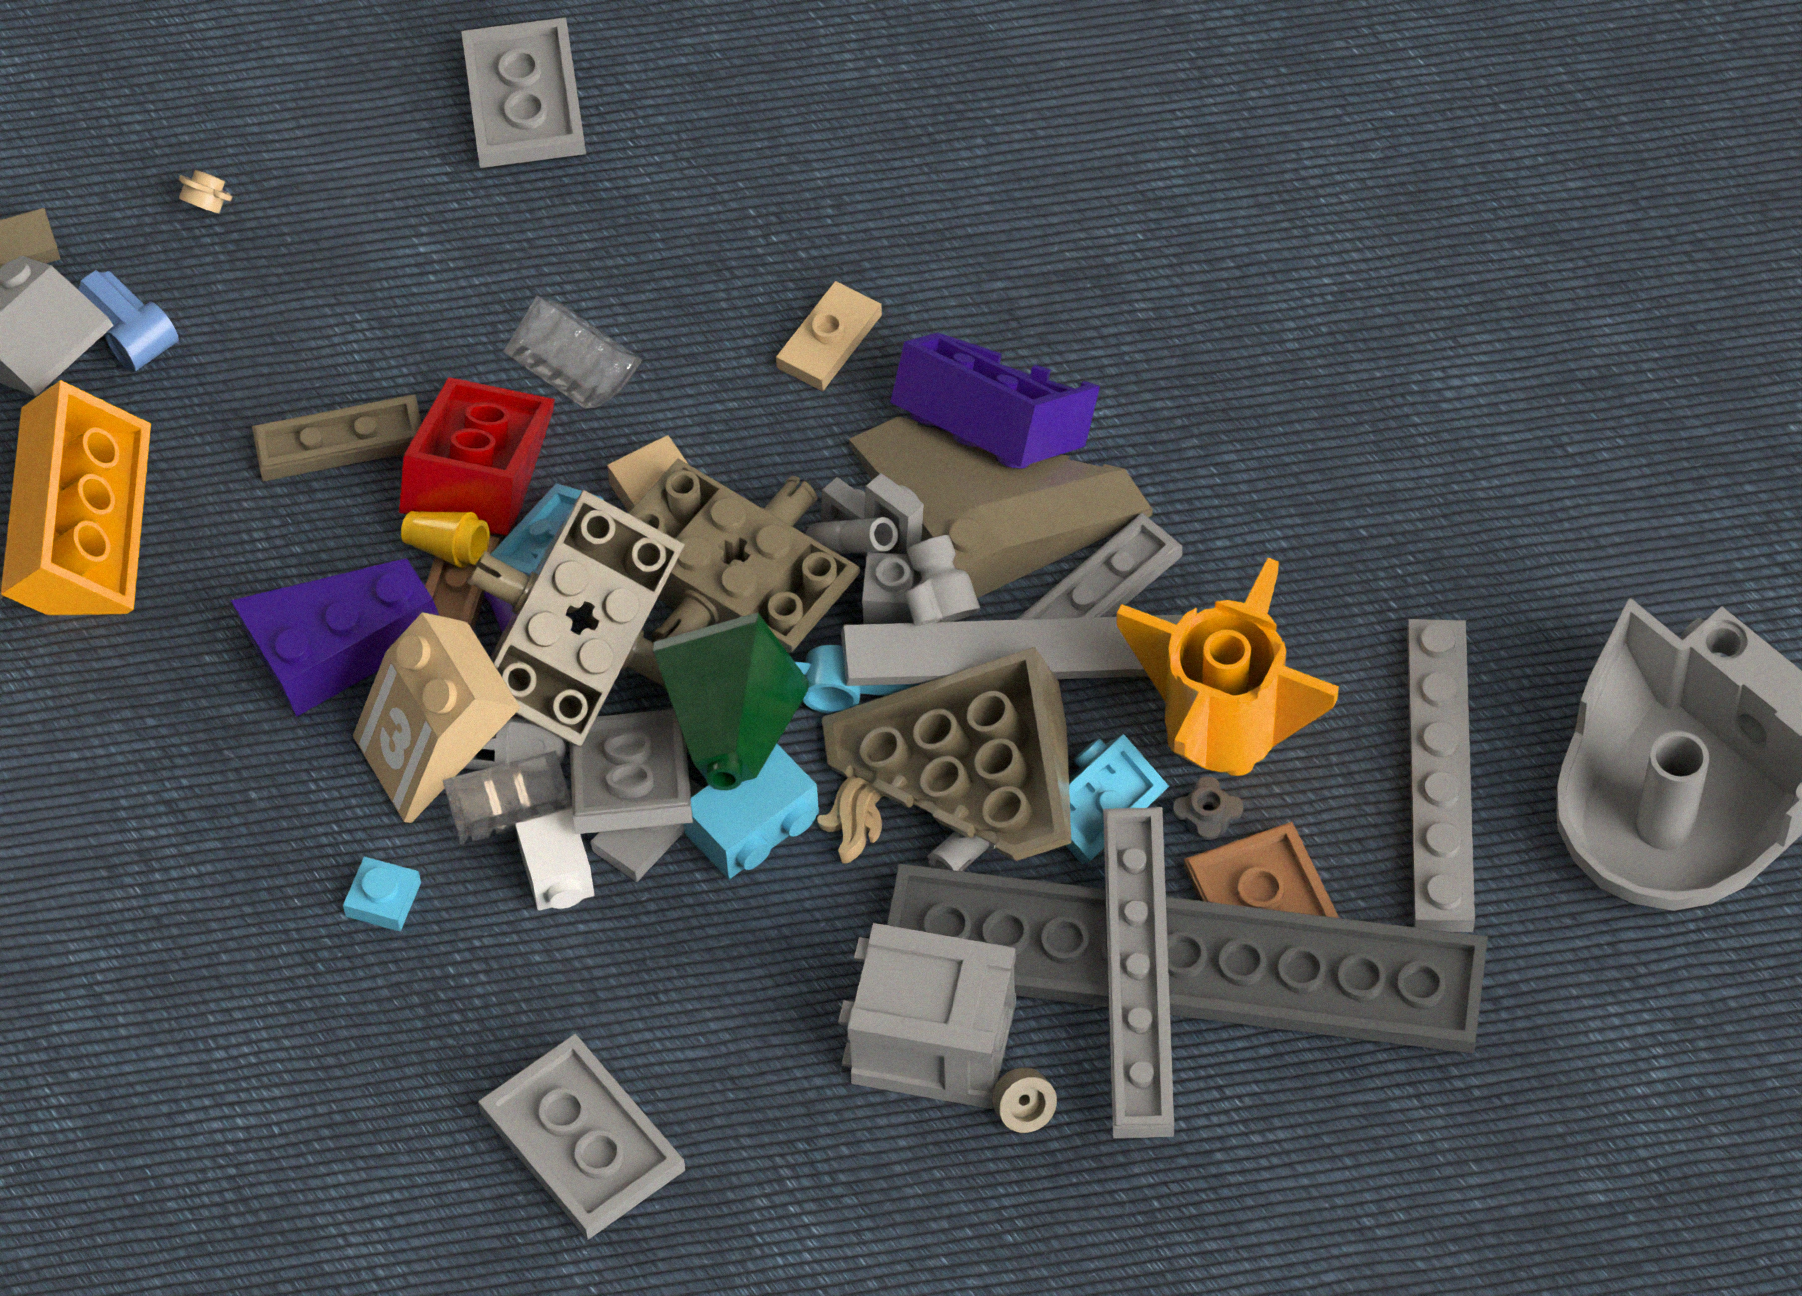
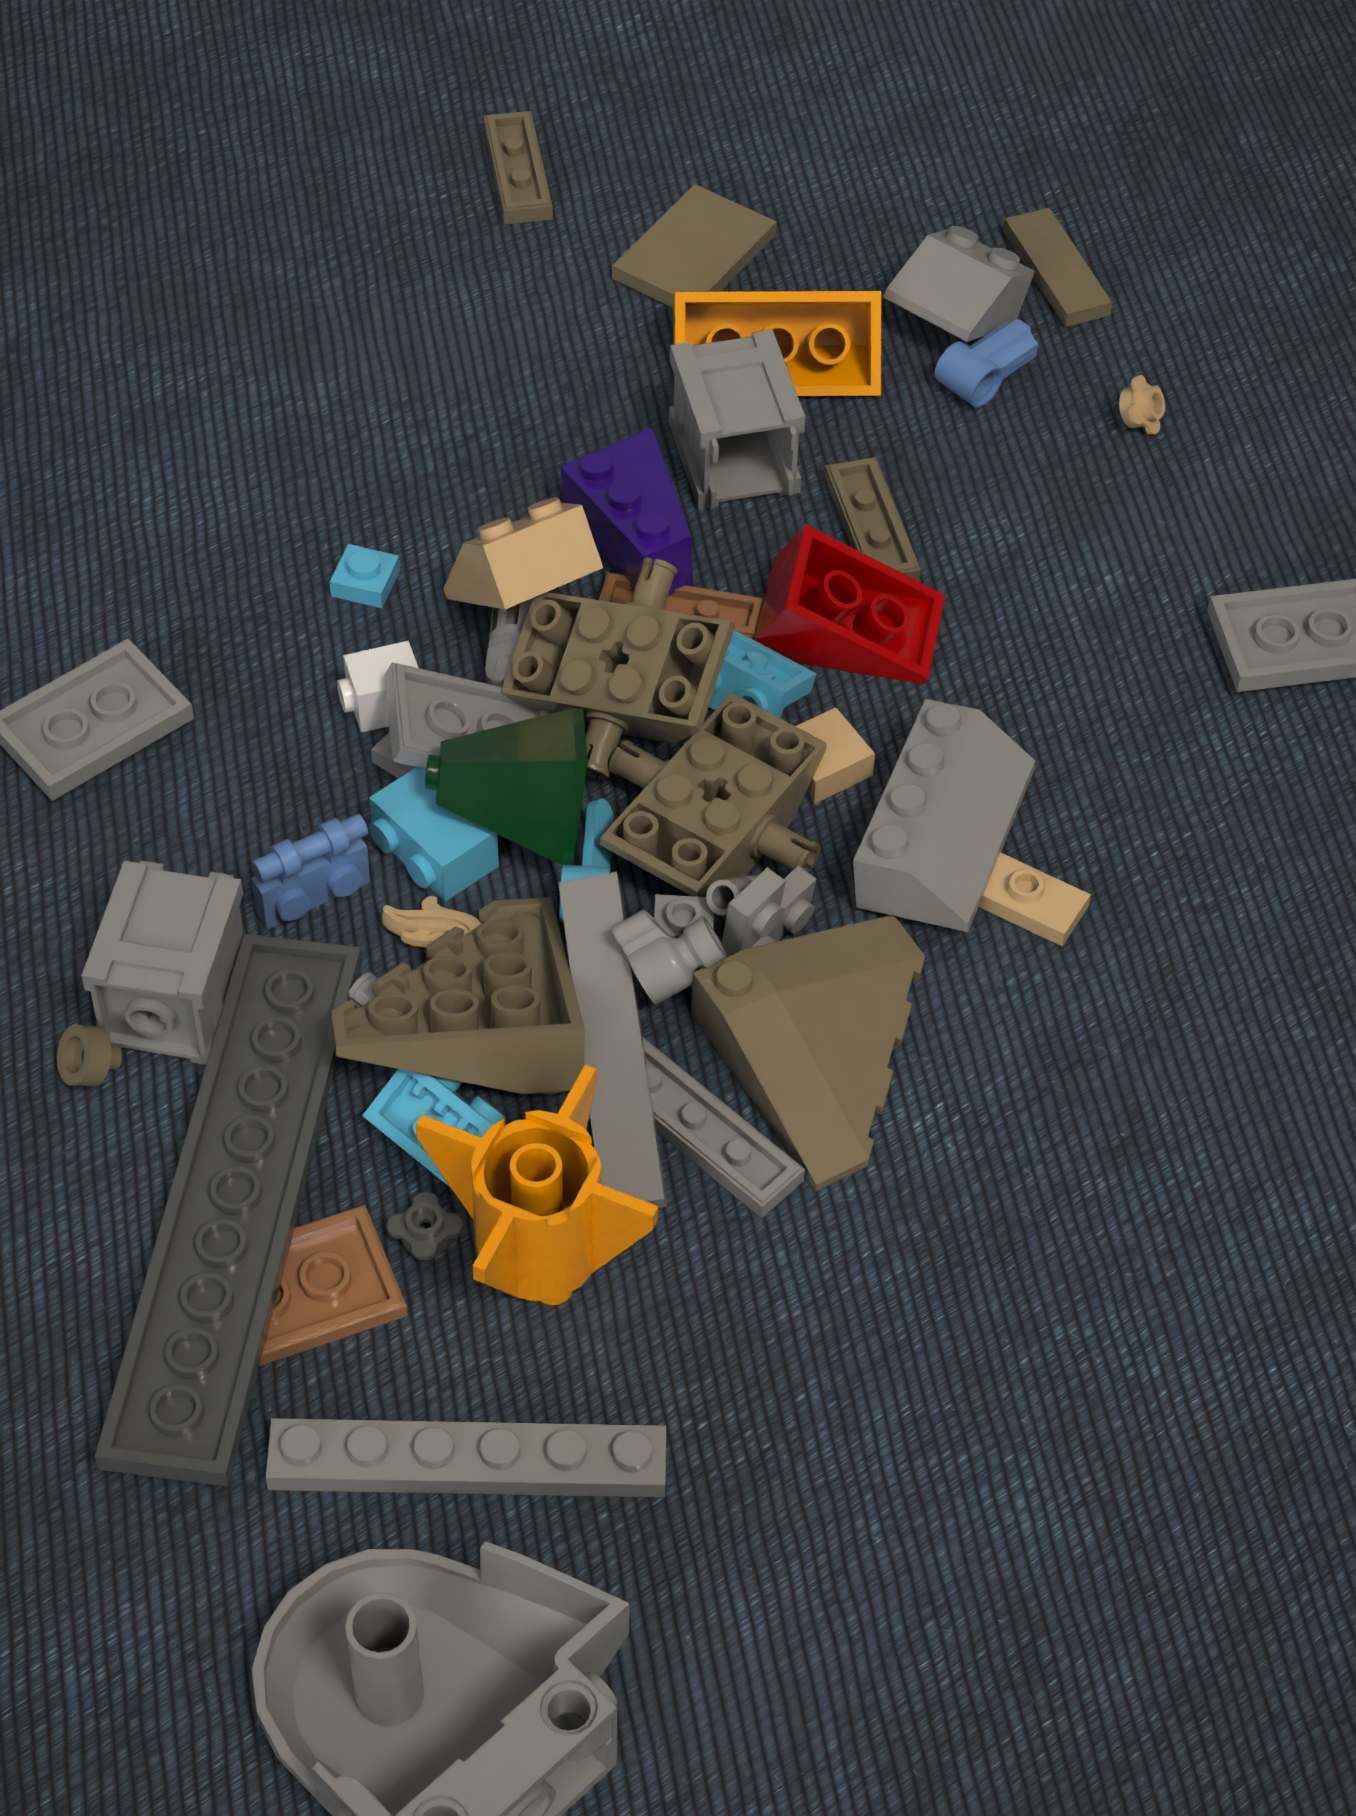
camera: 85 degrees right, 5 degrees down
(216, 528) = (736, 419): none -> light grey container
(447, 535) = (740, 588): yellow cone -> none
(506, 794) = (443, 635): clear brick -> none
(571, 353) = (984, 673): clear brick -> none
(749, 388) = (942, 818): none -> light grey slope
(811, 903) = (311, 871): none -> medium blue plate
(991, 404) = (922, 1020): dark purple wedge -> none
(1138, 973) = (209, 1141): light grey tile -> none

